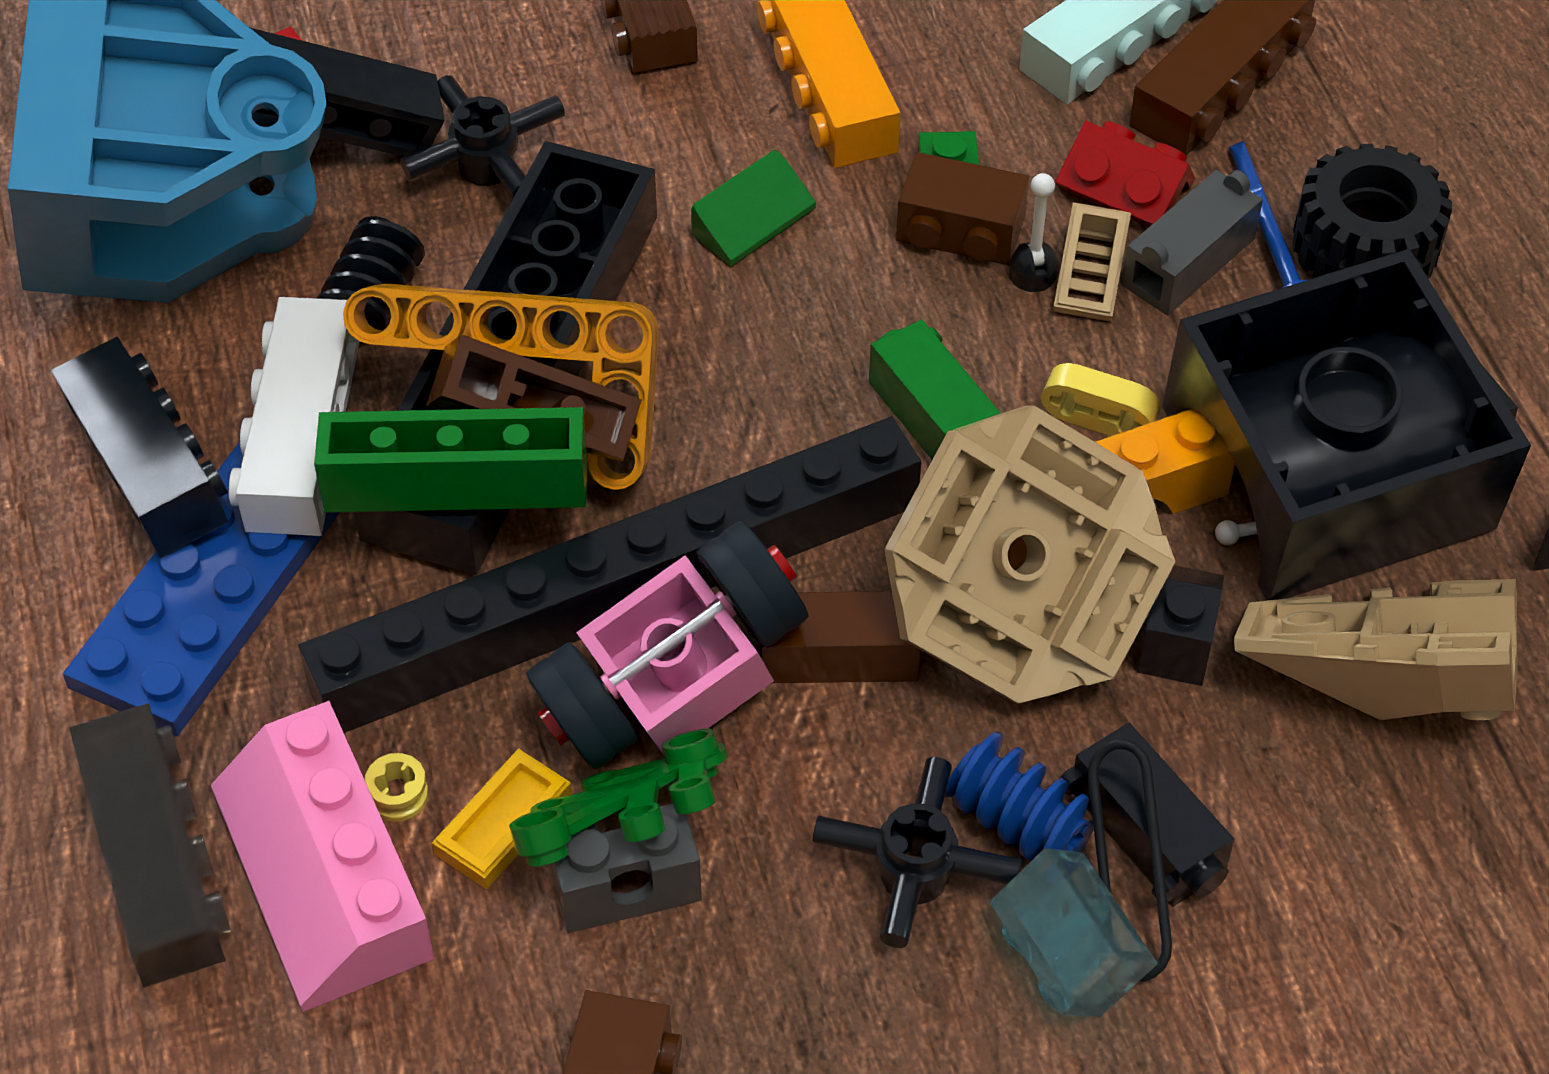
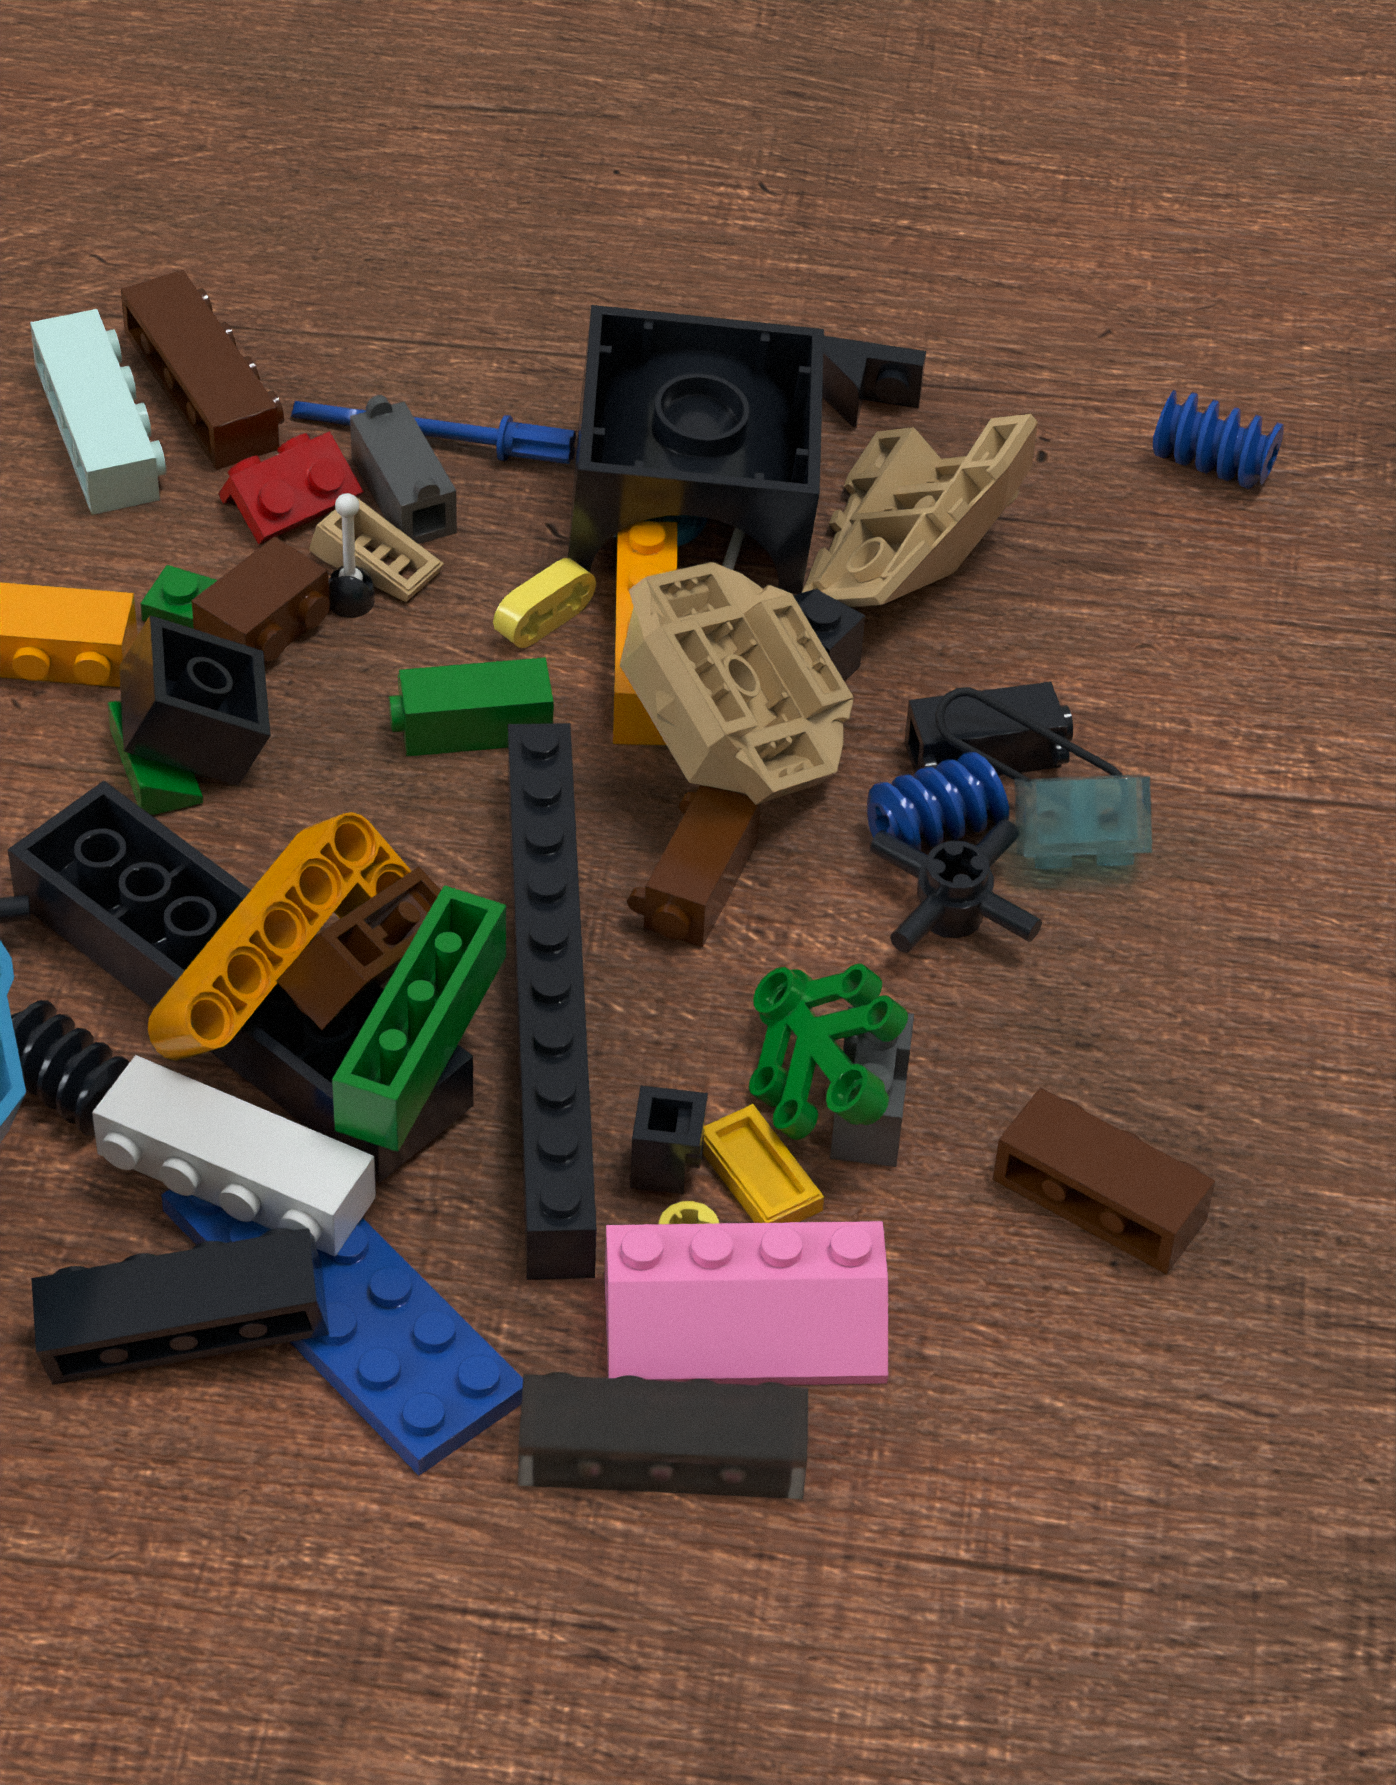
camera: 70 degrees left, 5 degrees down
(471, 734) = (667, 1138): none -> black brick
(672, 650) = (683, 956): brick -> none
(796, 196) = (194, 701): none -> black brick
(1370, 207) = (462, 353): black tyre -> none

